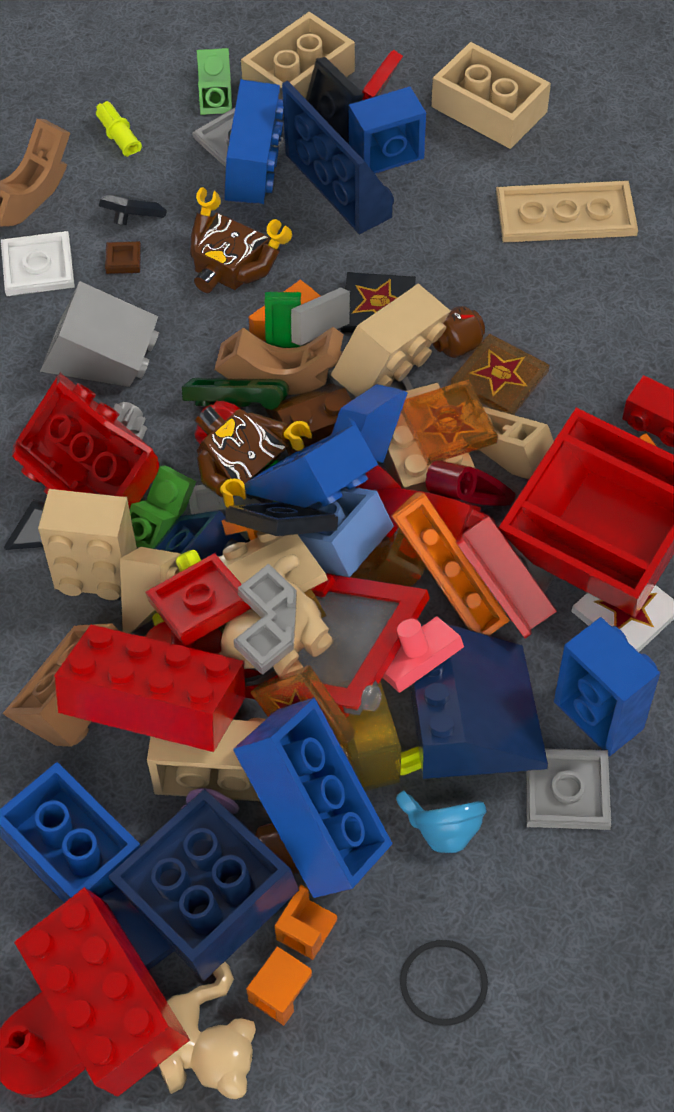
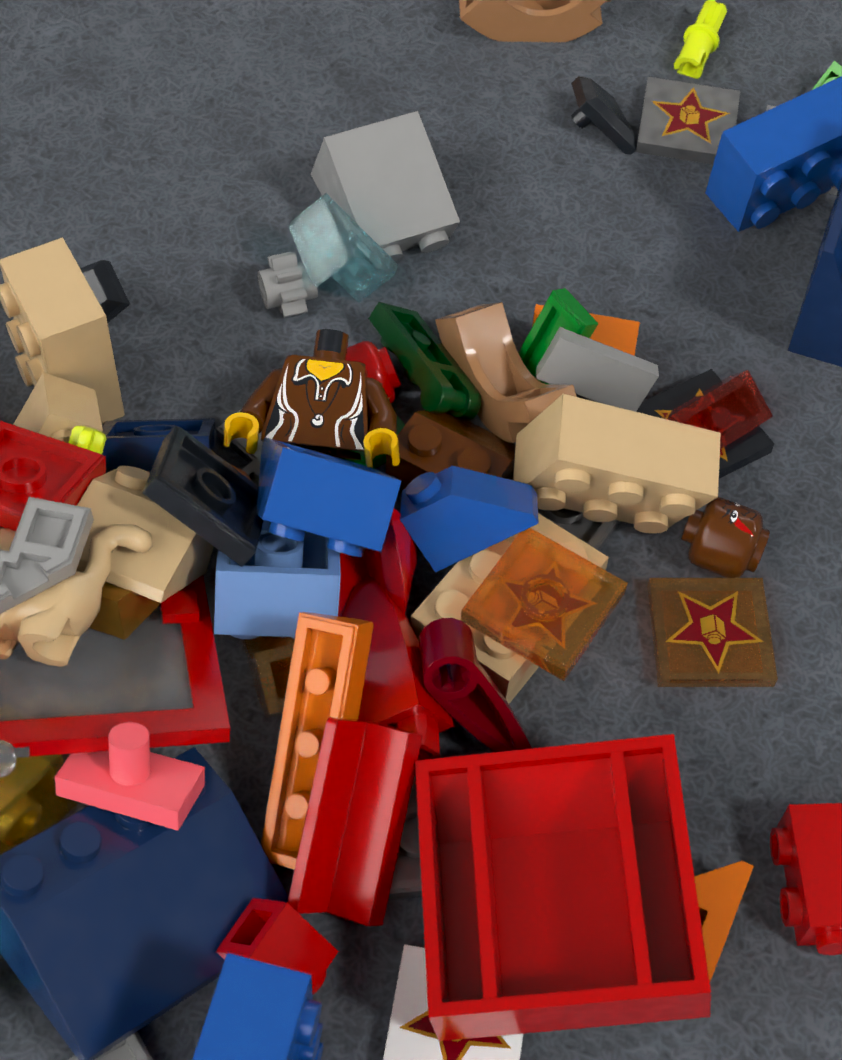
camera: 50 degrees right, 0 degrees up
(37, 263) = (452, 84): white tile -> none
(83, 446) = (191, 272): red slope -> none
(123, 257) = (531, 151): reddish brown tile -> none
(130, 381) = (340, 248): none -> clear light blue slope
(163, 506) = (189, 392): bright green slope -> none
(169, 174) = (685, 119): none -> flat silver tile
(229, 250) = (627, 231): reddish brown torso -> none
(378, 285) = (727, 407): none -> clear red slope
(519, 444) = (608, 687): tan slope -> none
(538, 656) = (279, 936): none -> red brick

